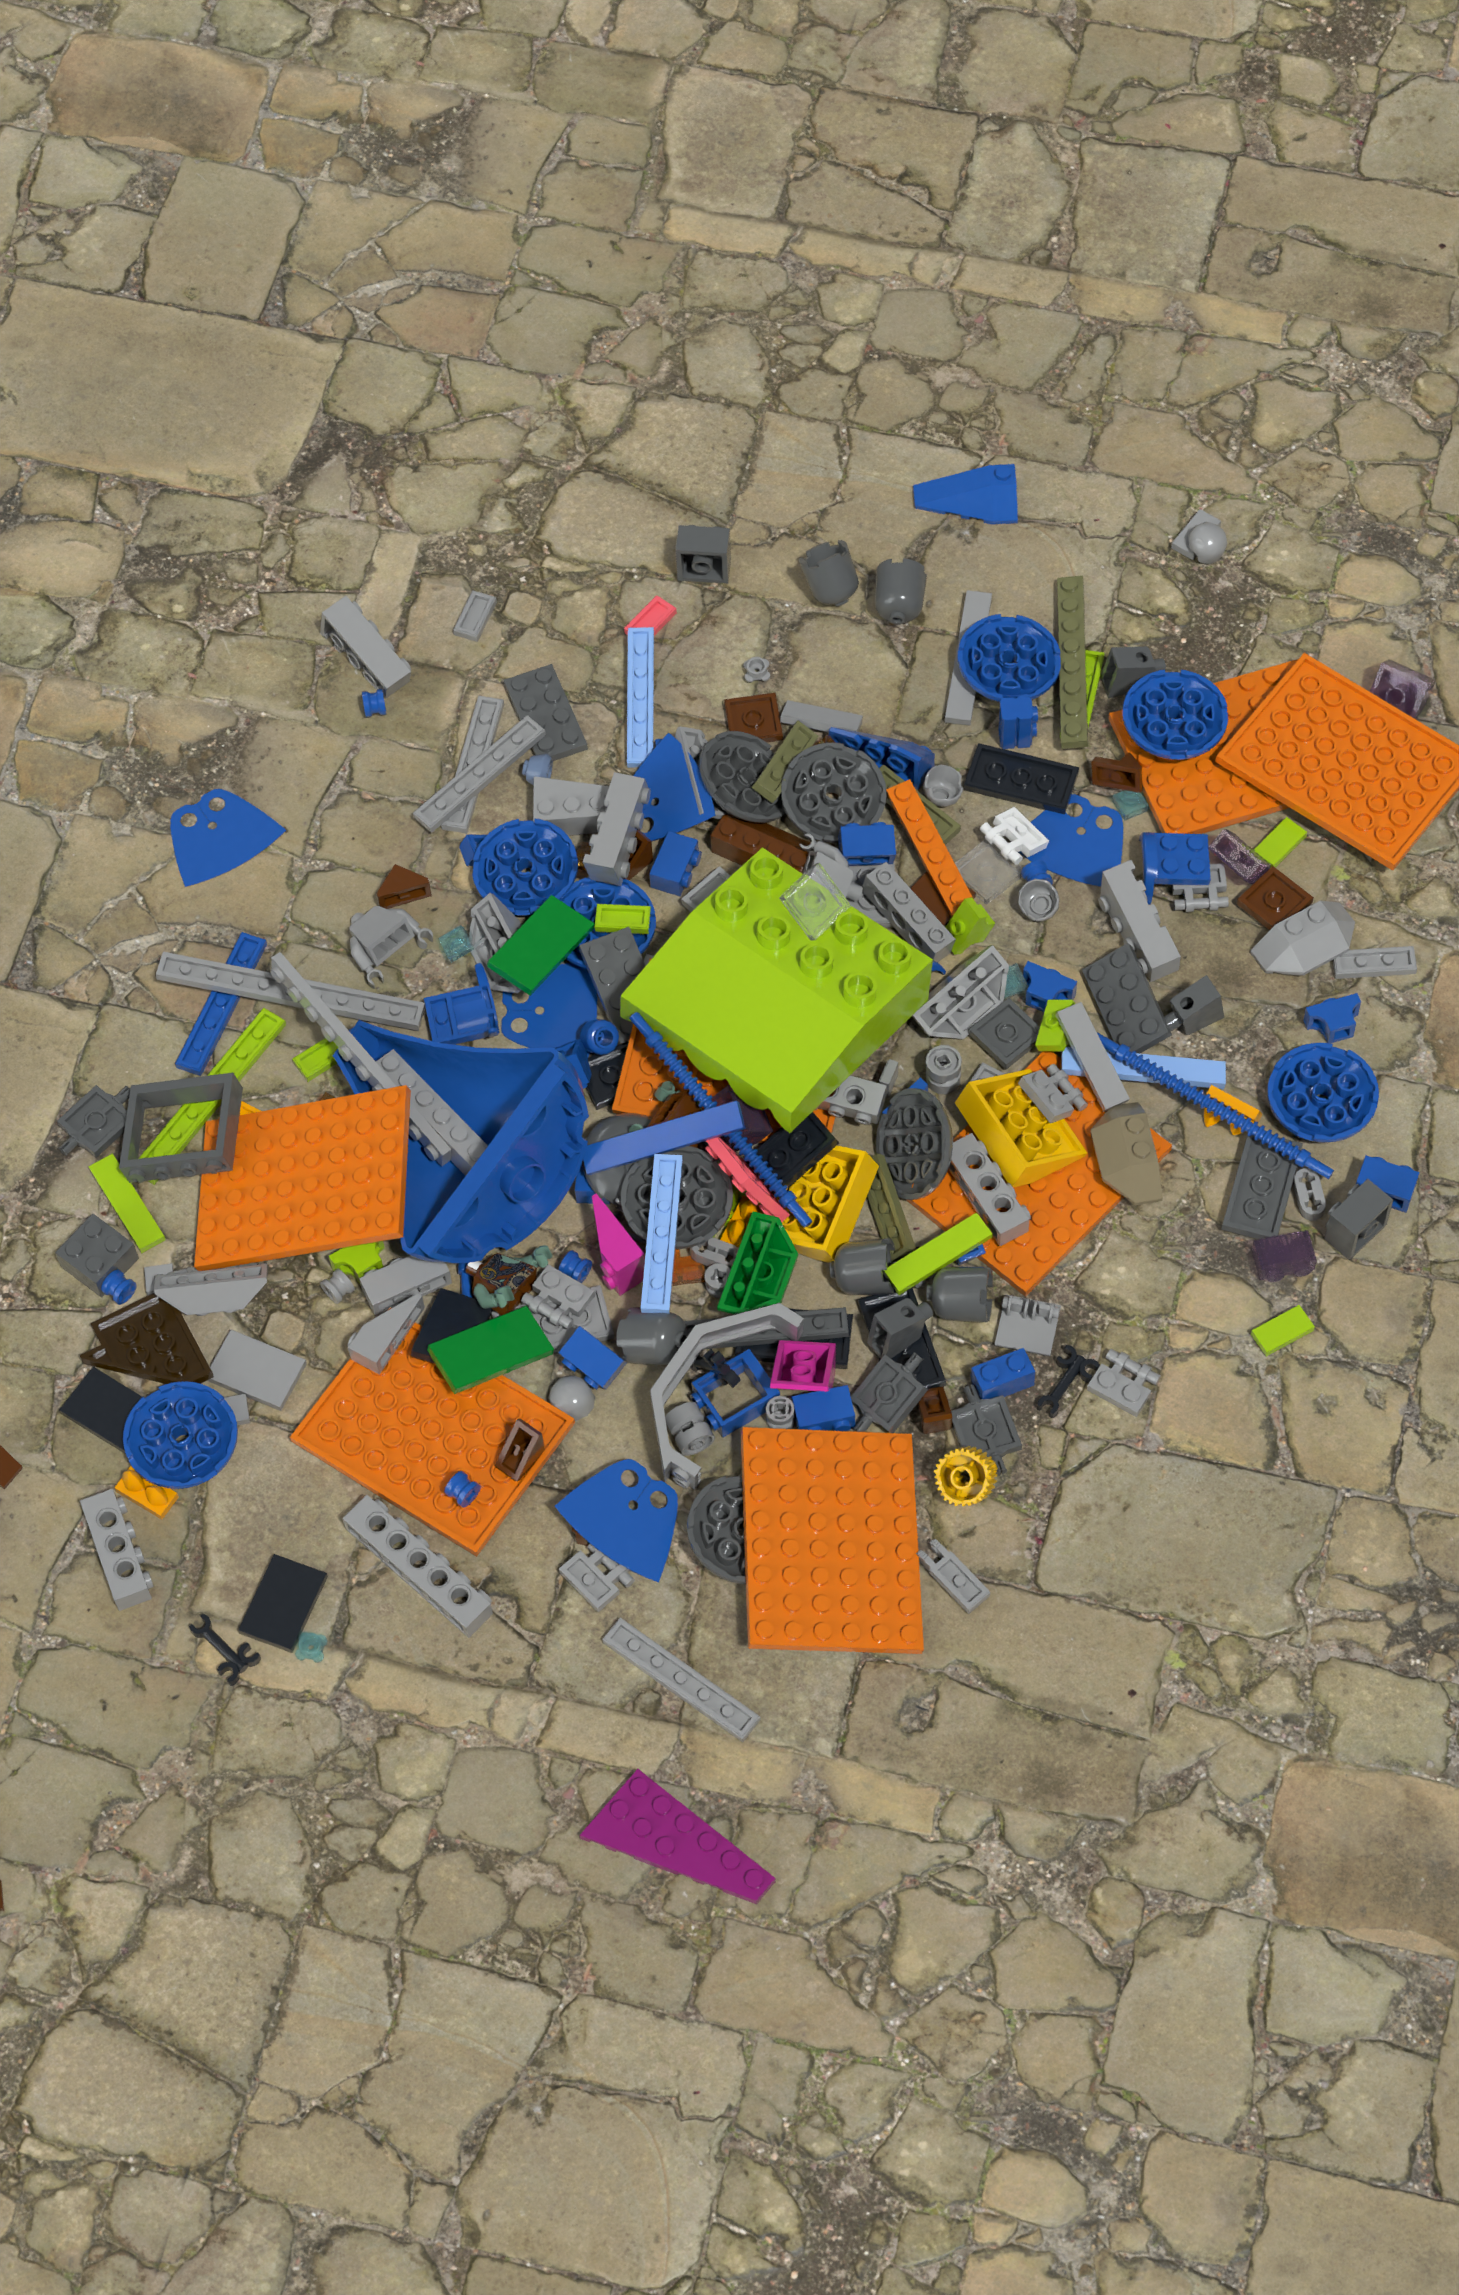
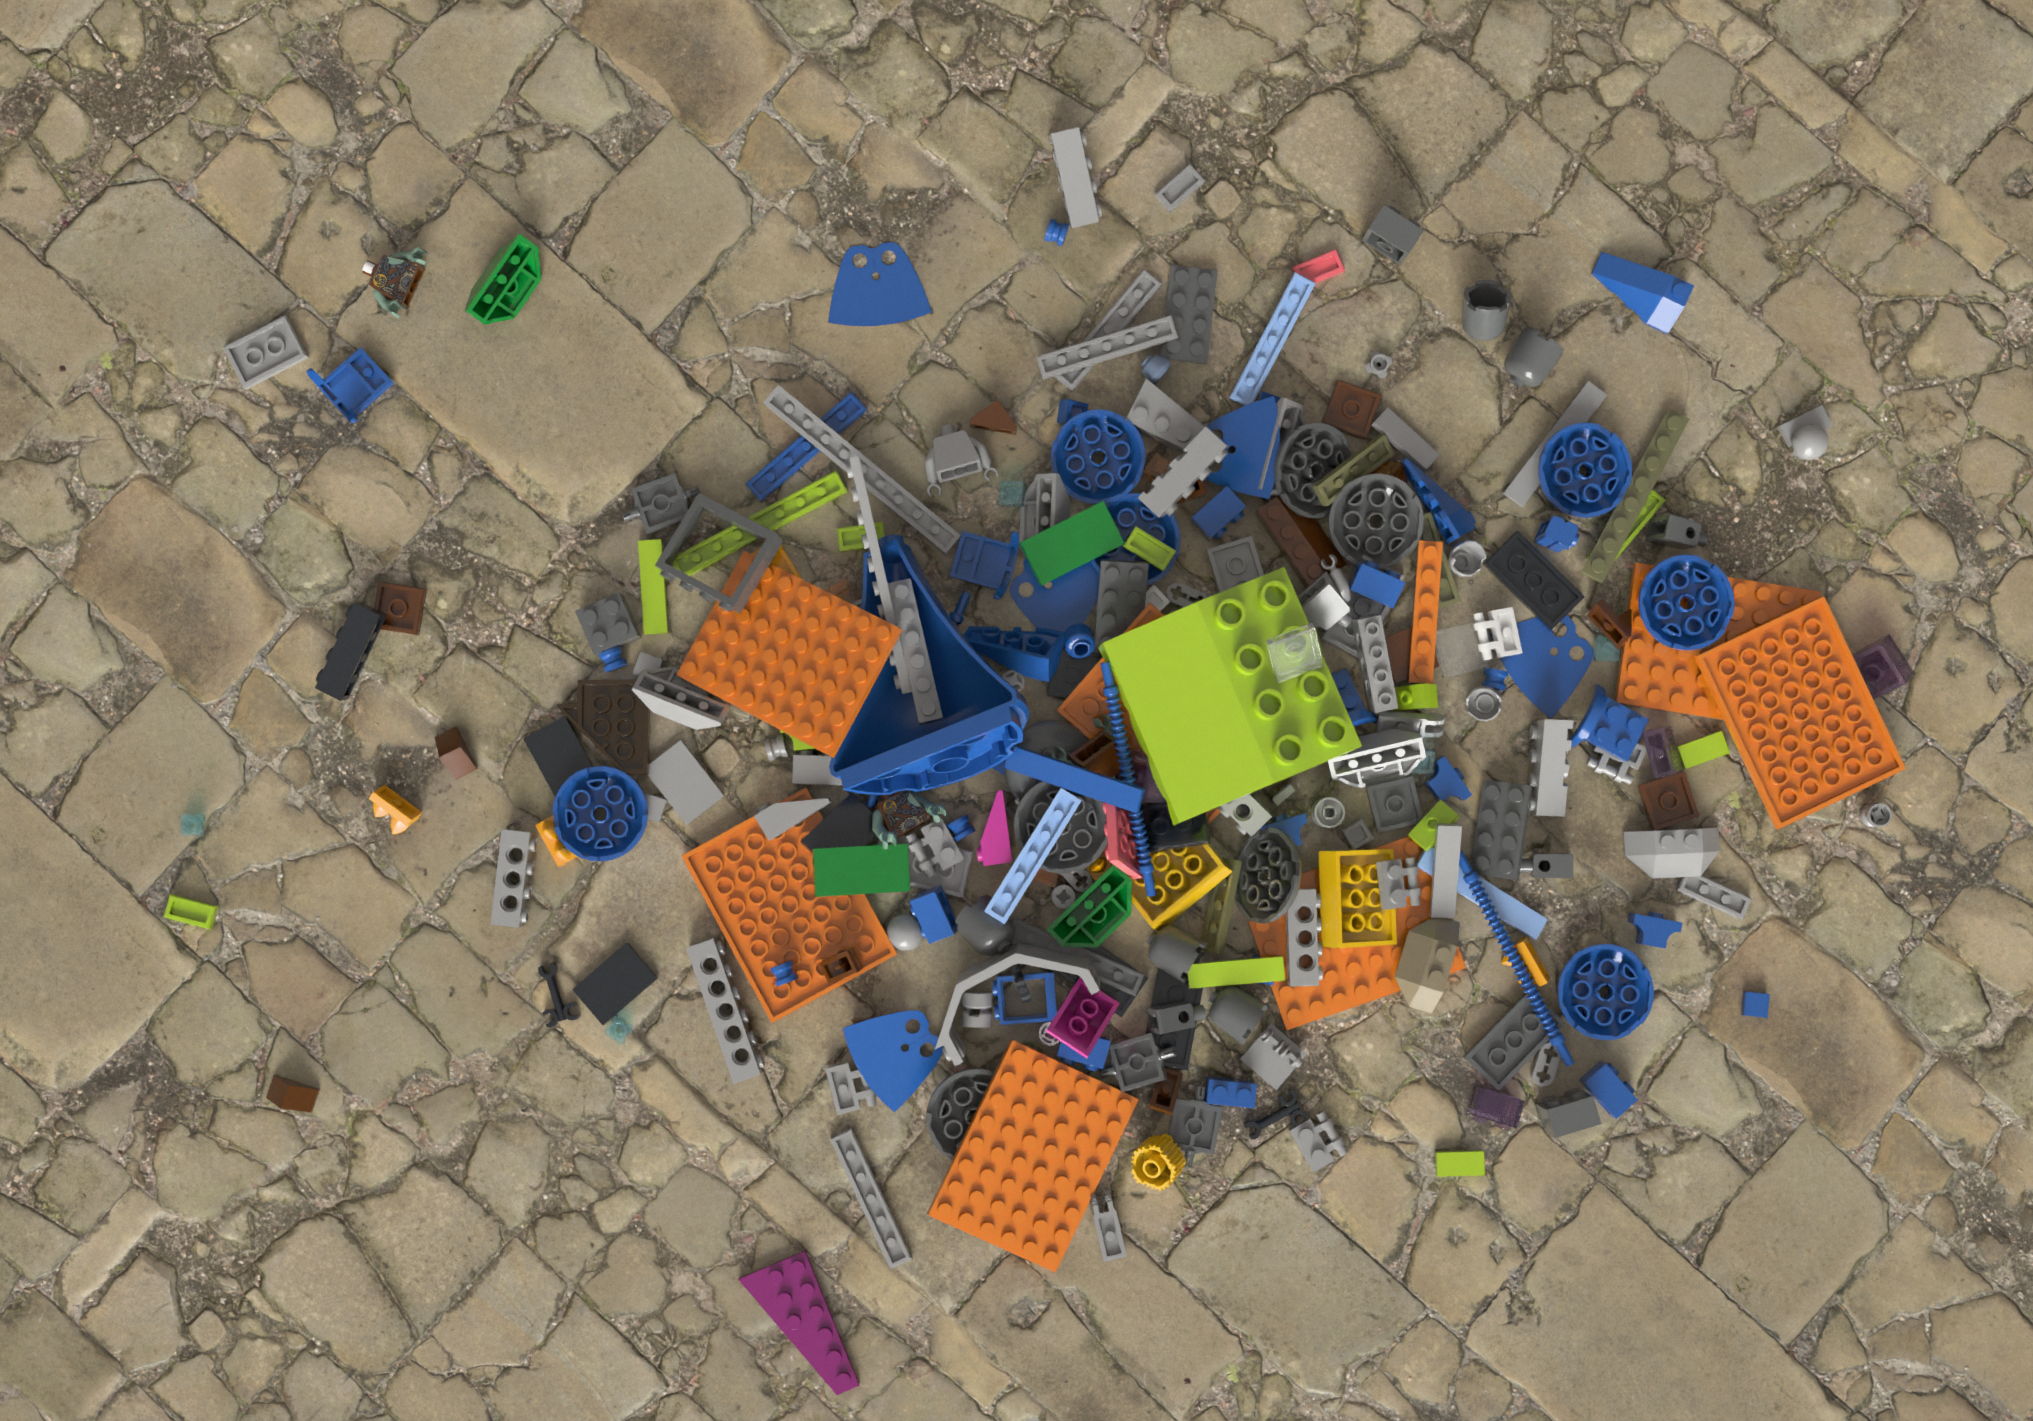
camera: 25 degrees right, 25 degrees up
(955, 958) = (1411, 723): none -> light grey hinge

